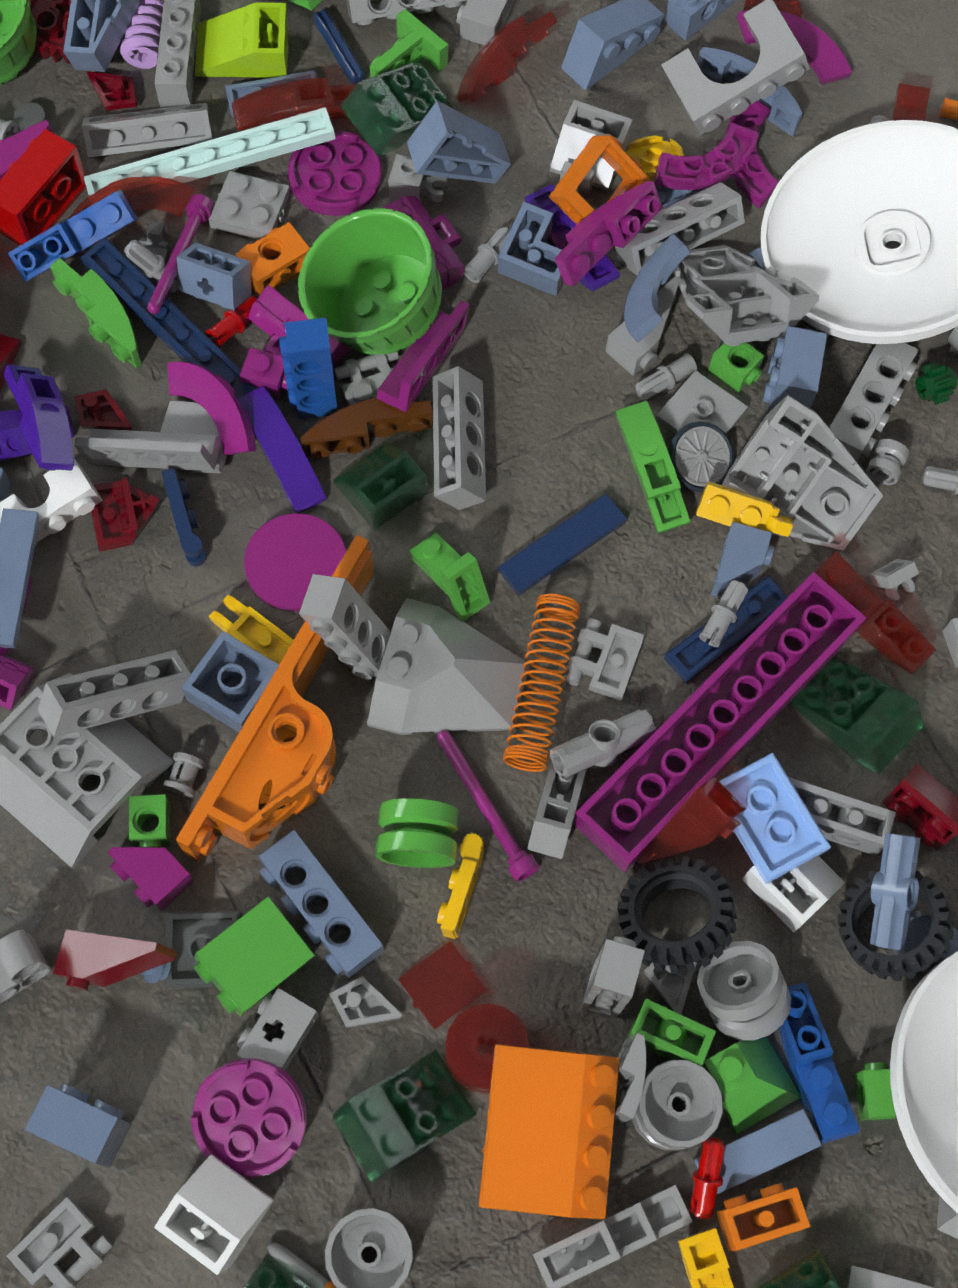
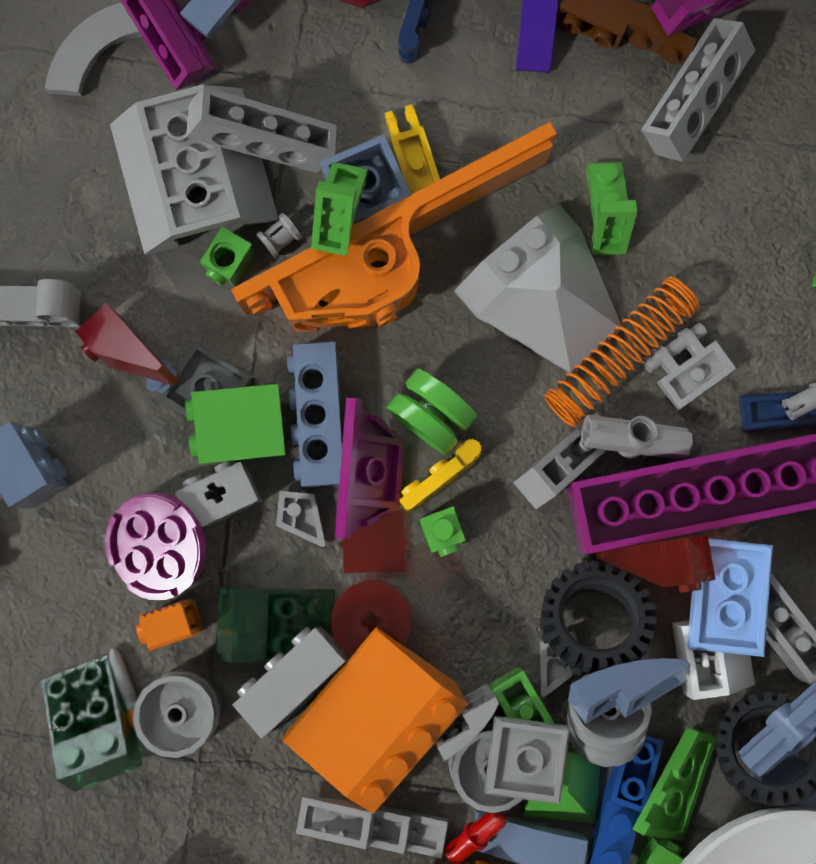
camera: 35 degrees right, 15 degrees up
(154, 871) = (205, 302): magenta slope -> none
(214, 1215) = (81, 602): white slope -> none
(226, 712) = (336, 208): none -> bright green bracket
(286, 556) = (485, 108): magenta tile -> none
(309, 1177) = (169, 624): none -> orange brick
(345, 624) = (486, 195): light grey brick -> none
(383, 484) = (605, 89): clear green slope -> none
(396, 919) = (368, 470): none -> magenta wing
(452, 1148) = (290, 681): none -> light grey slope
(495, 930) = (442, 531): none -> bright green brick
(520, 862) = (501, 488): magenta piece -> none
(562, 544) = (723, 242): dark blue tile -> none
(613, 977) = (507, 641): light grey brick -> none
(701, 1069) = (527, 759): none -> light grey plate
(738, 947) = (626, 686): none -> sand blue slope
(846, 1016) = (678, 788): none -> bright green wing

